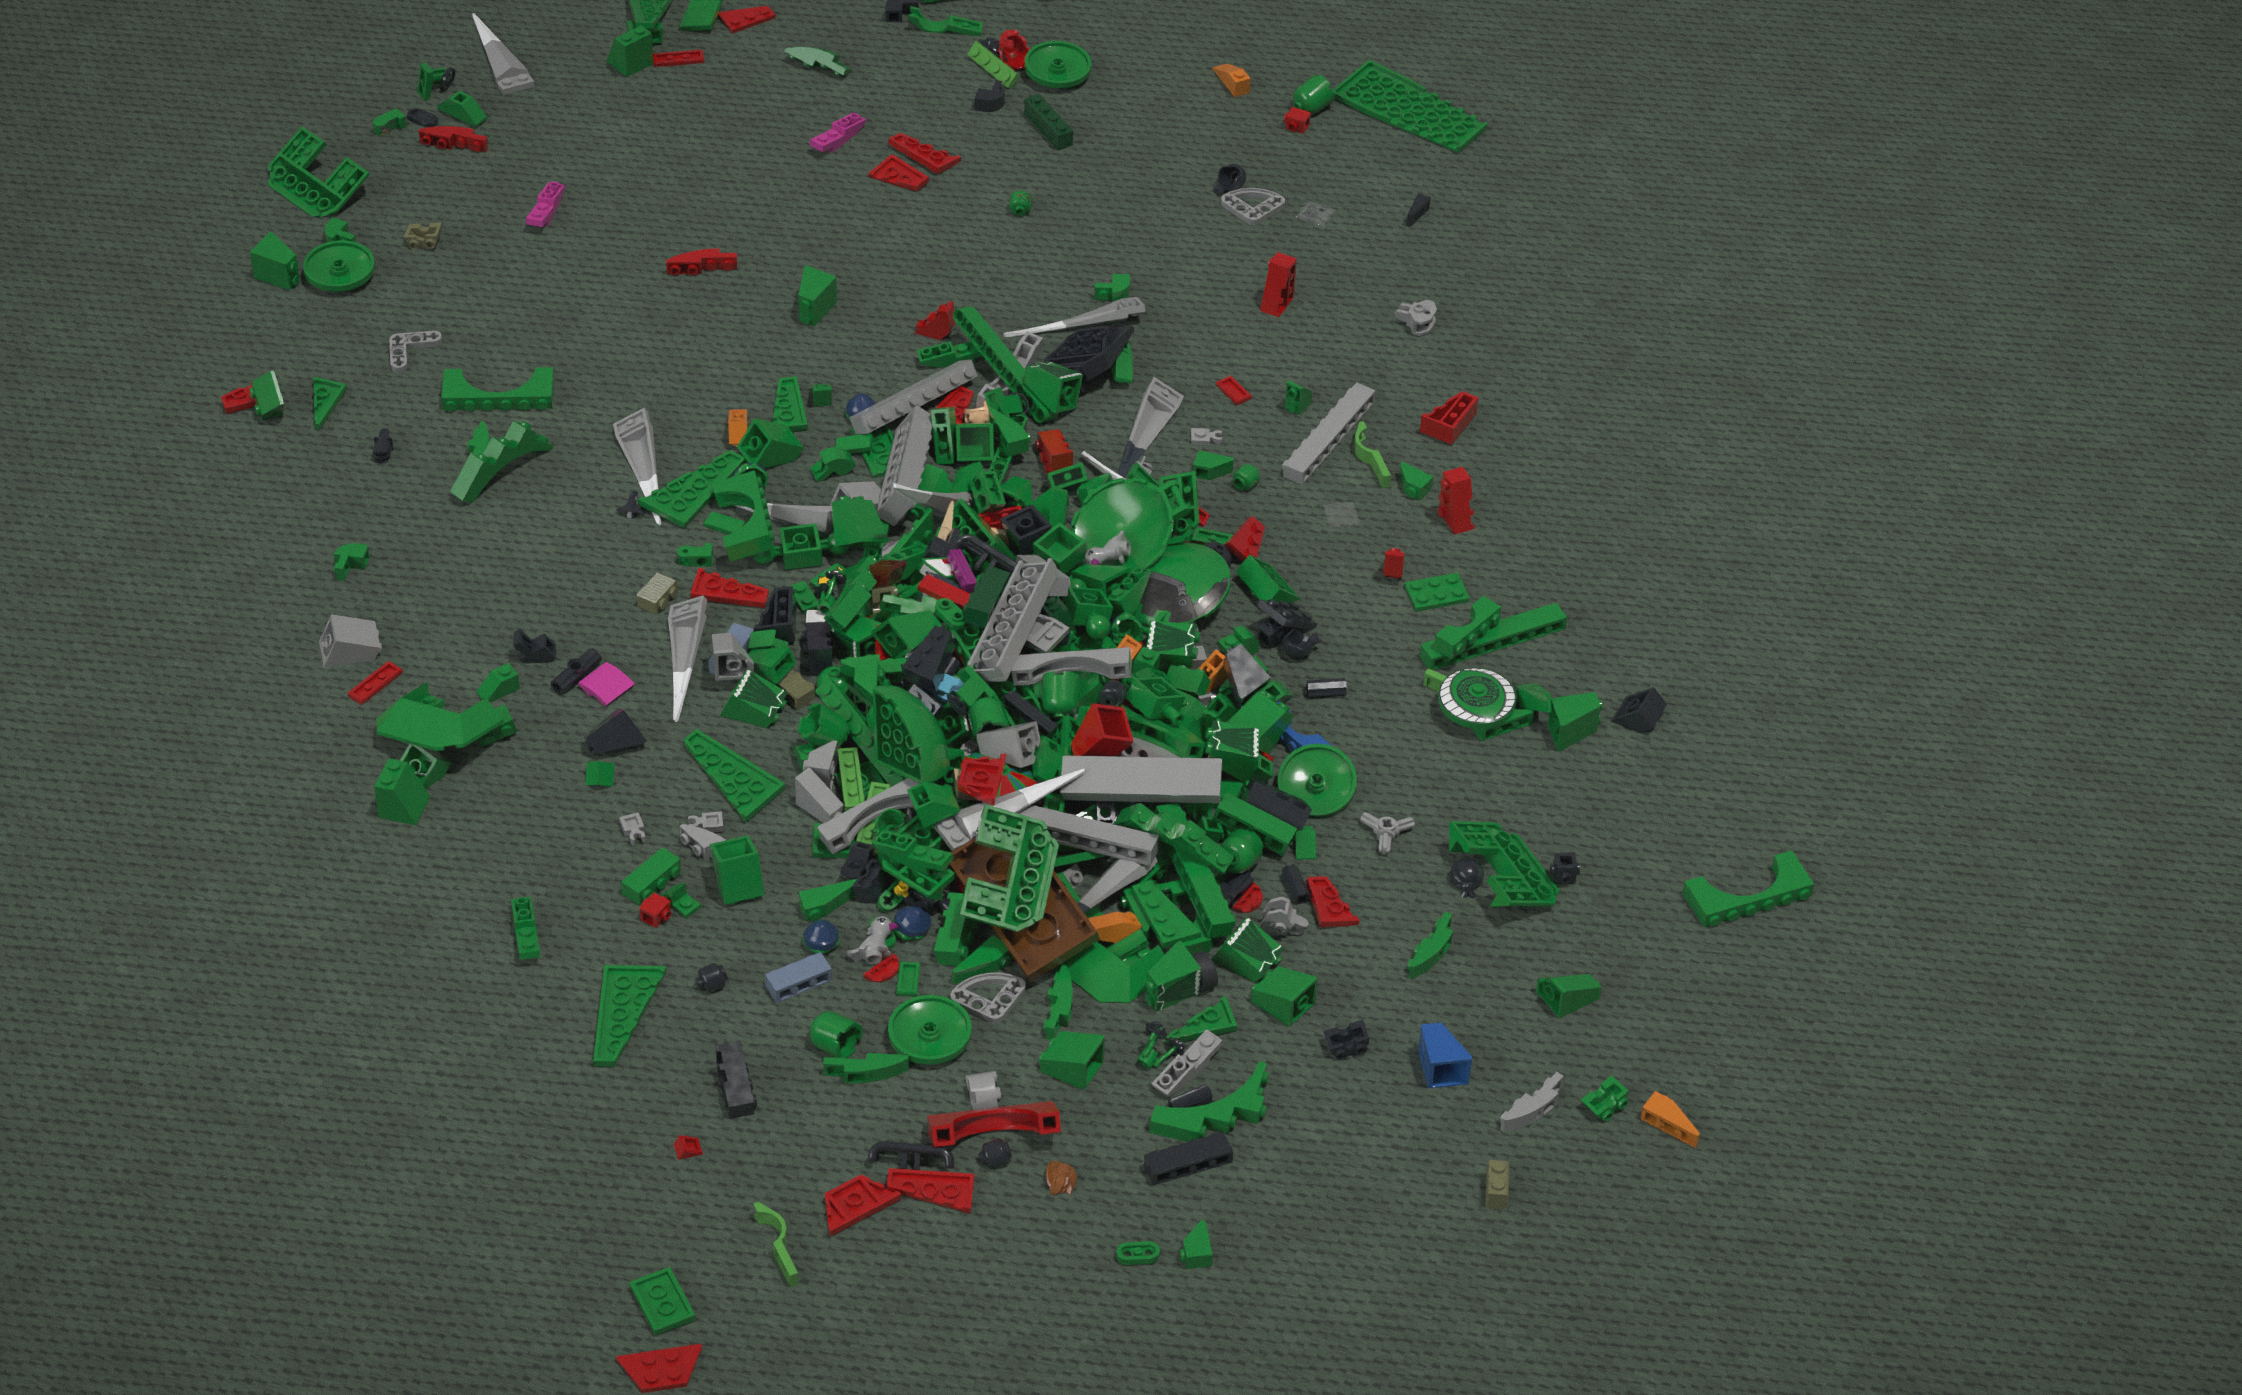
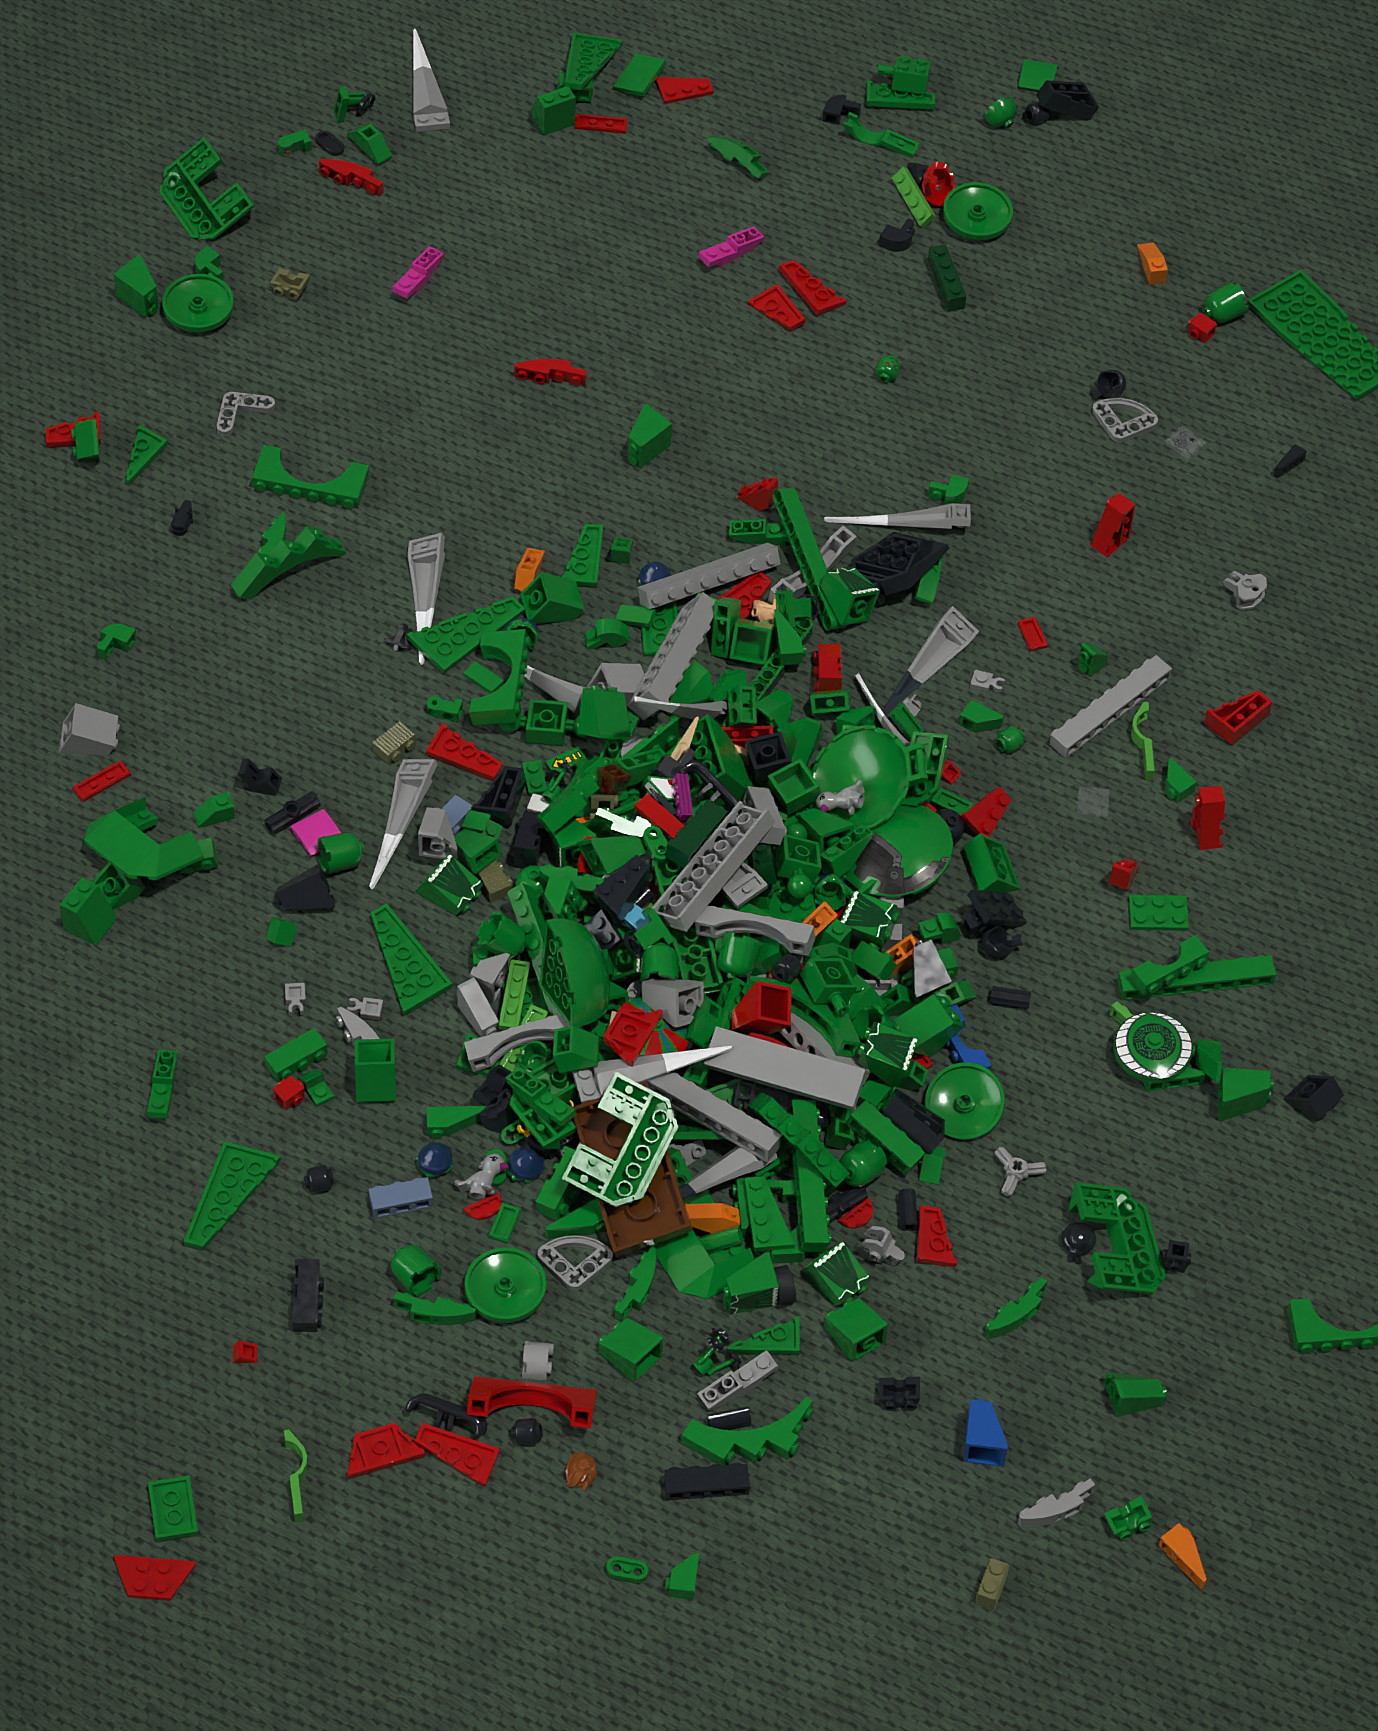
camera: 15 degrees right, 10 degrees up
(635, 693) = (339, 852): none -> green cylinder
(1030, 713) = (702, 969): black piece -> none

